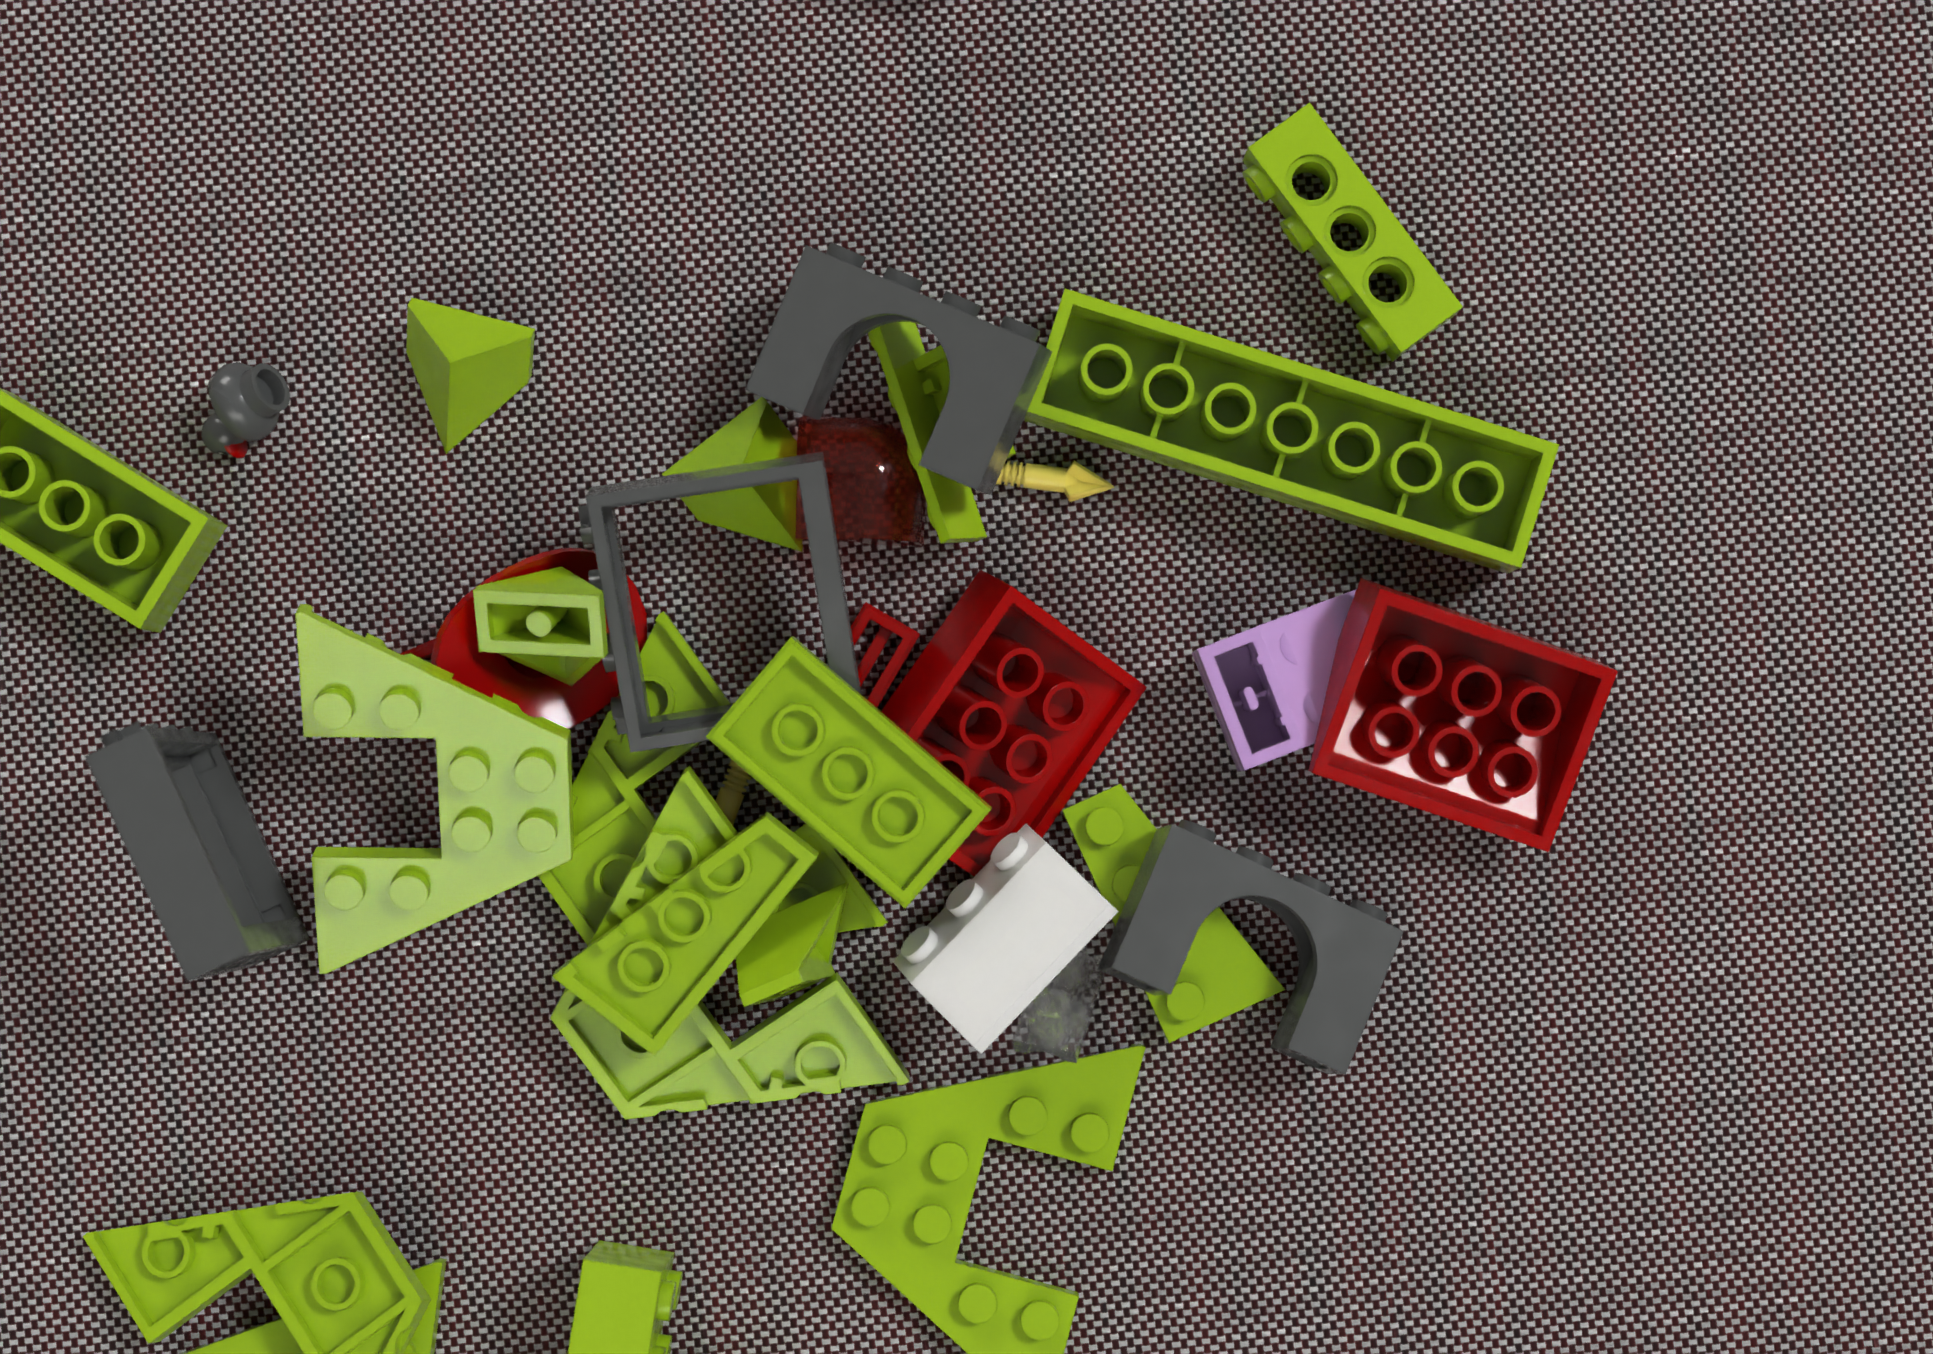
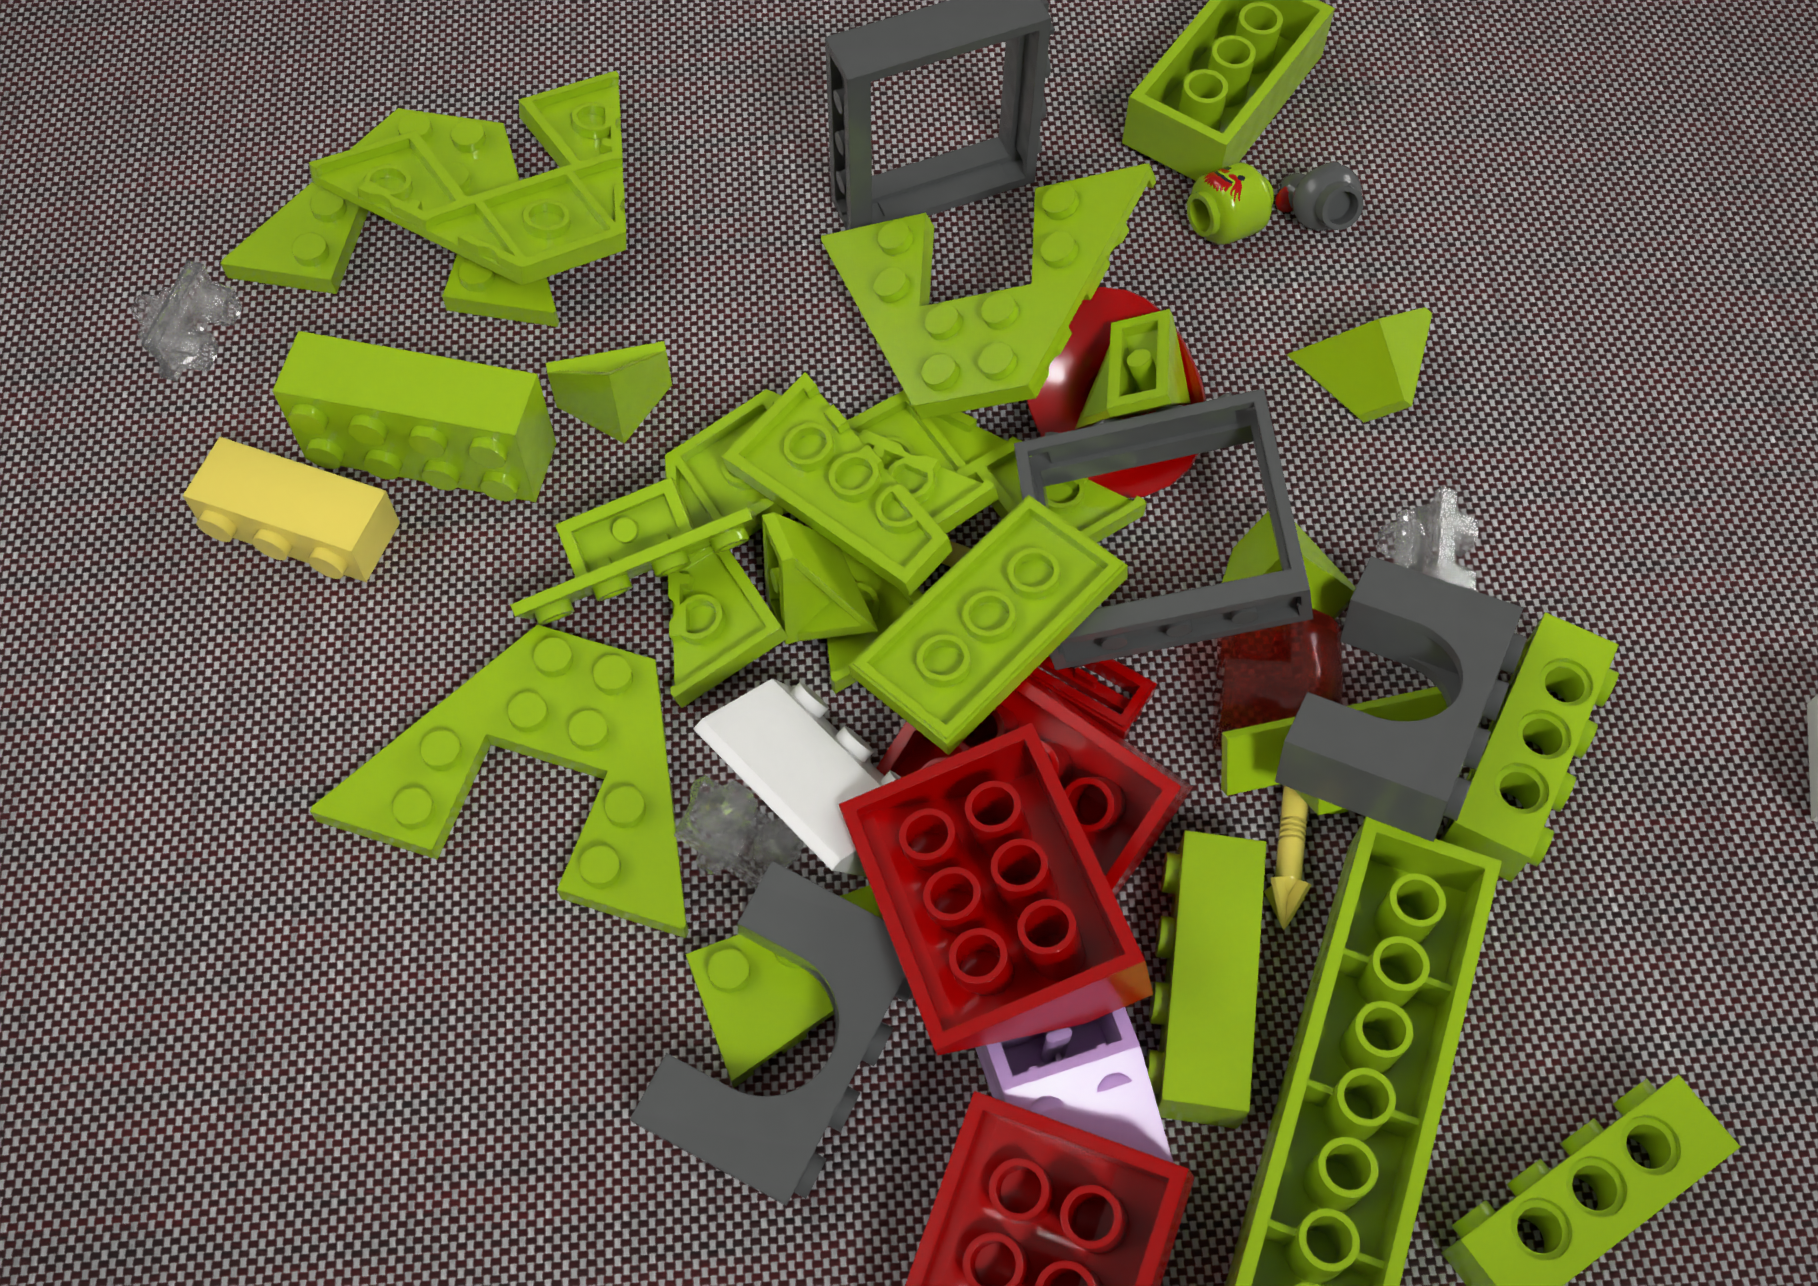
camera: 90 degrees right, 25 degrees down
(261, 511) = (1230, 203): none -> lime head
(543, 1183) = (612, 387): none -> lime slope
(702, 325) = (1431, 537): none -> clear hips
(746, 1140) = (629, 539): none -> lime bracket
(840, 177) = (1577, 668): none -> lime brick
(1136, 762) = (995, 897): none -> red slope
(1169, 559) = (1209, 979): none -> lime brick

